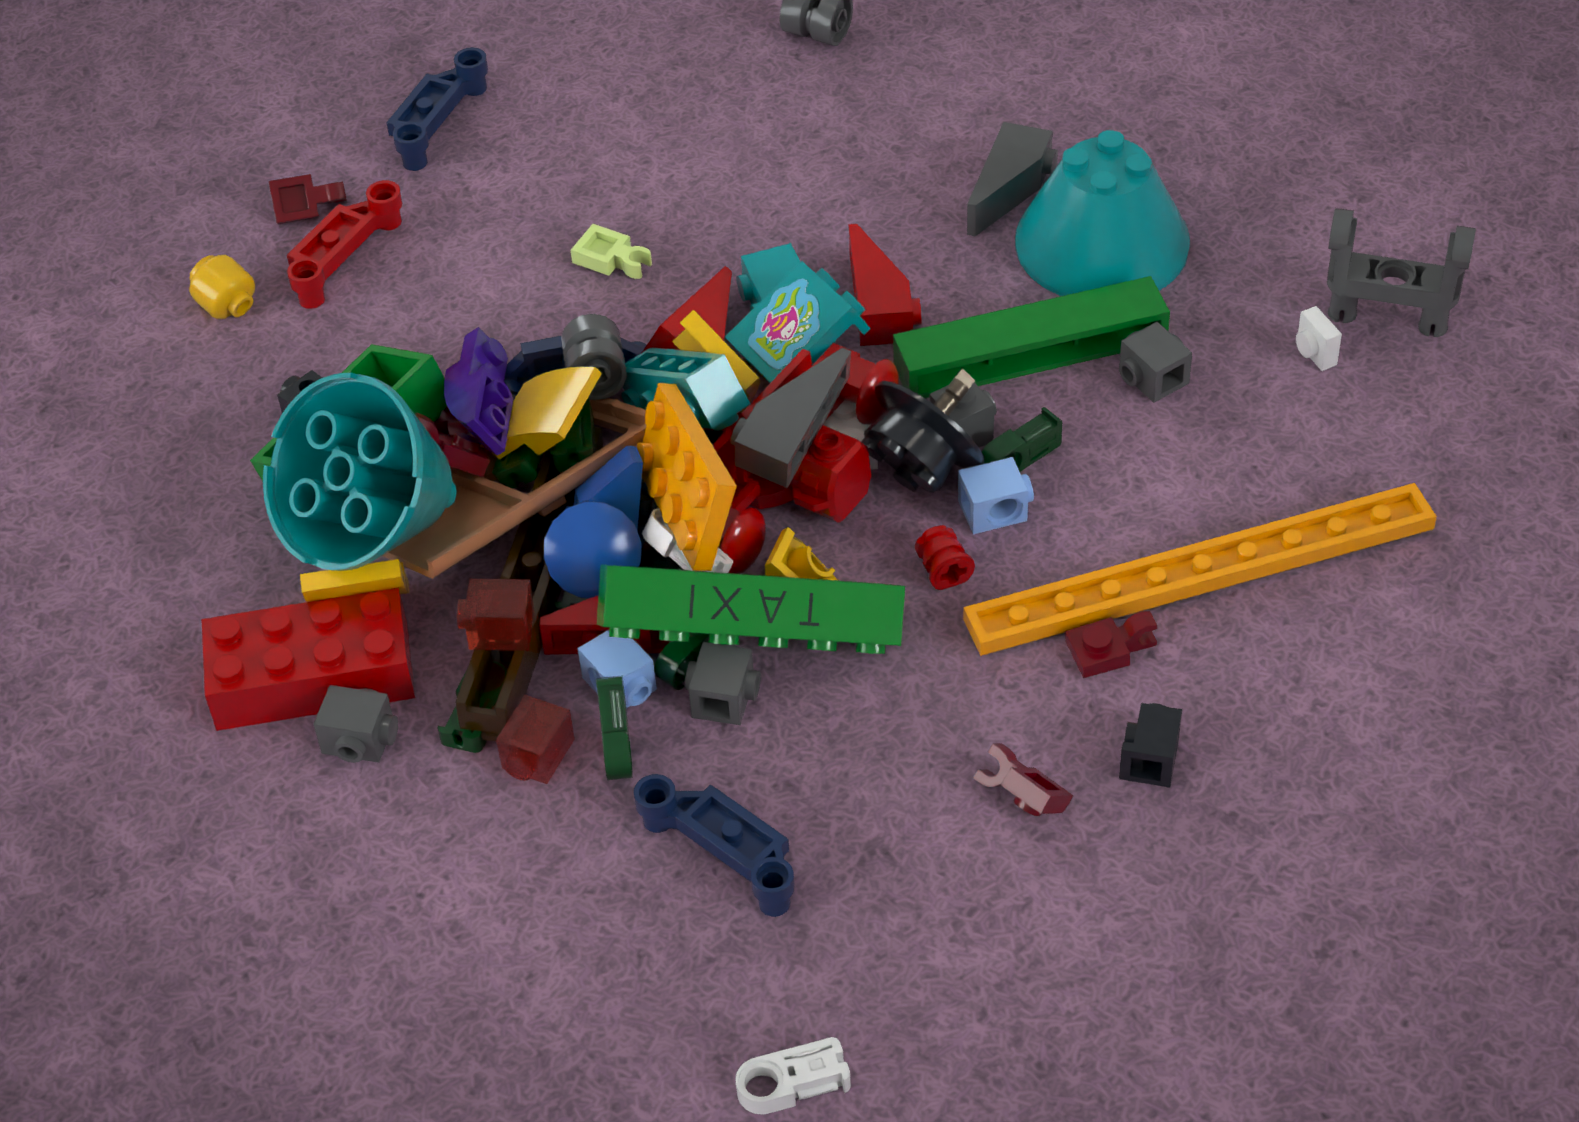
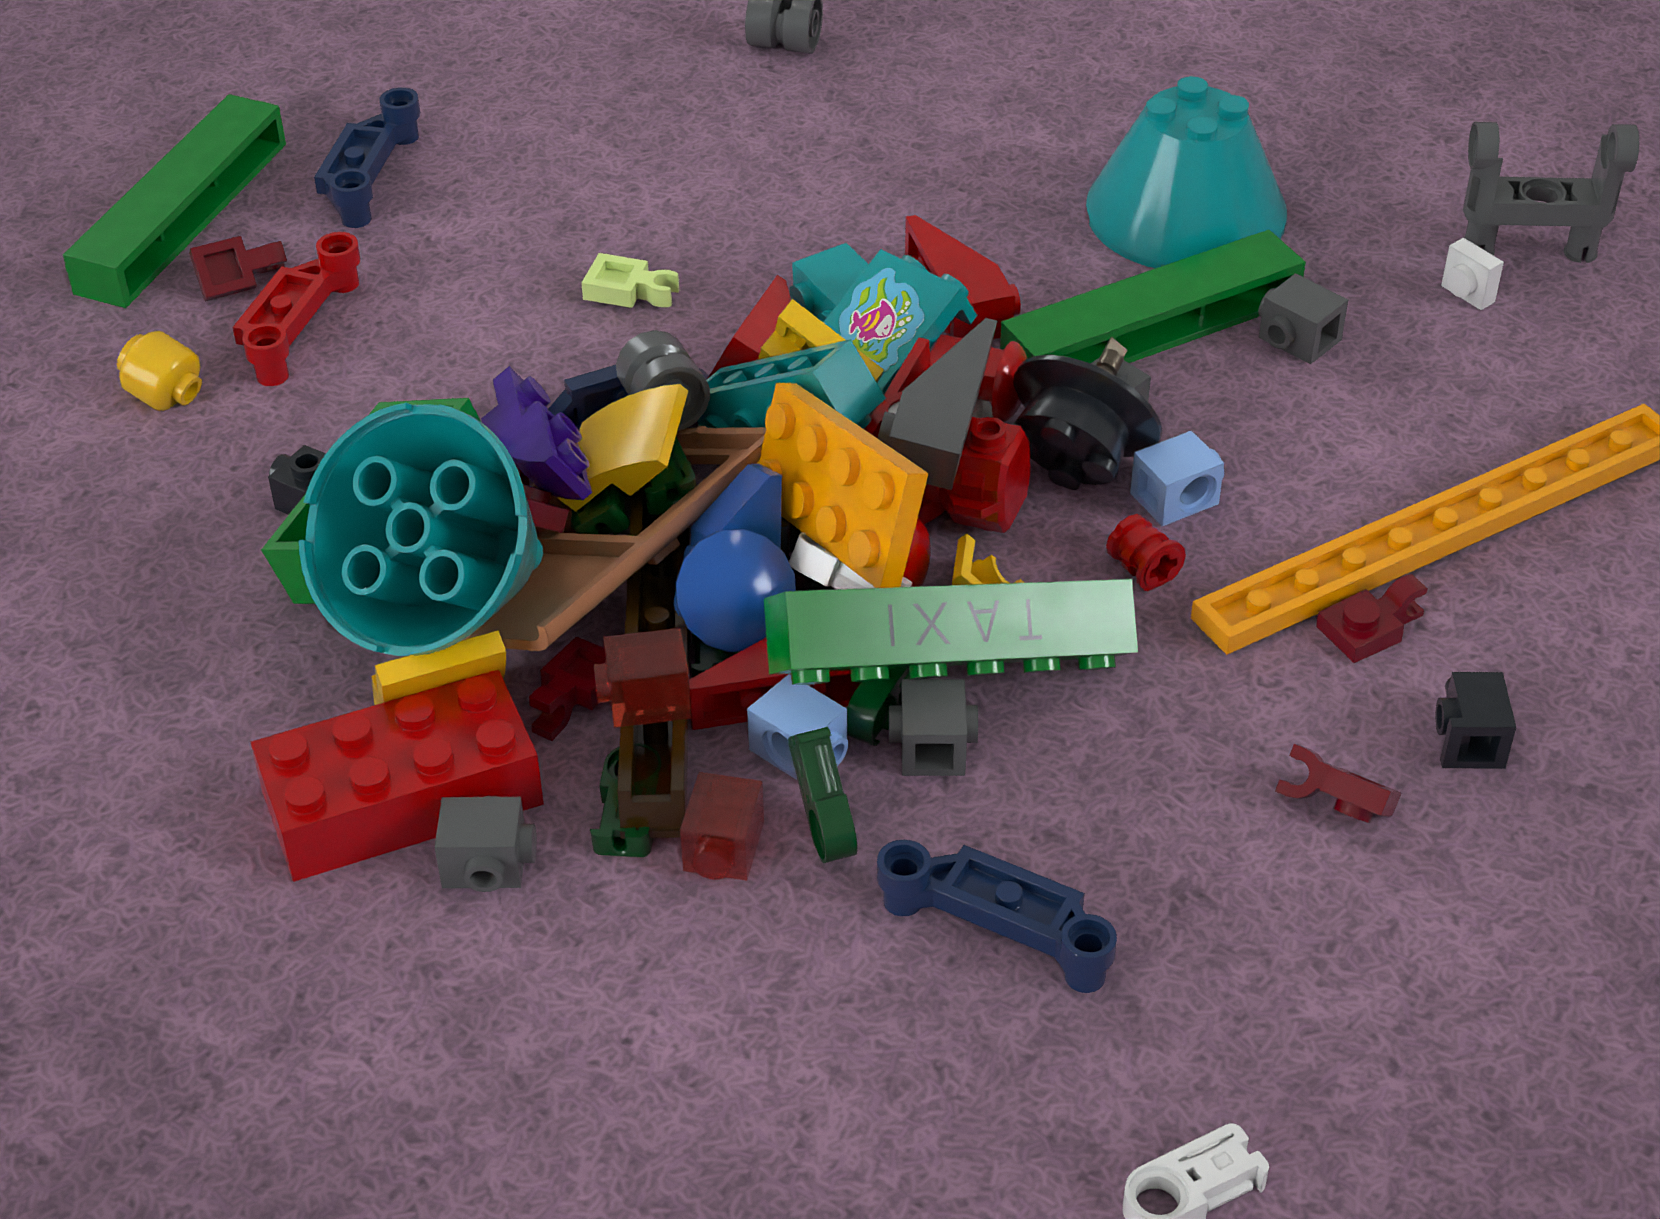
camera: 15 degrees left, 5 degrees down
(274, 130) = (174, 201): none -> green brick
(443, 615) = (564, 683): none -> dark red plate
(1010, 174) = (1064, 150): dark grey slope -> none
(1027, 442) = (1199, 412): dark green piece -> none

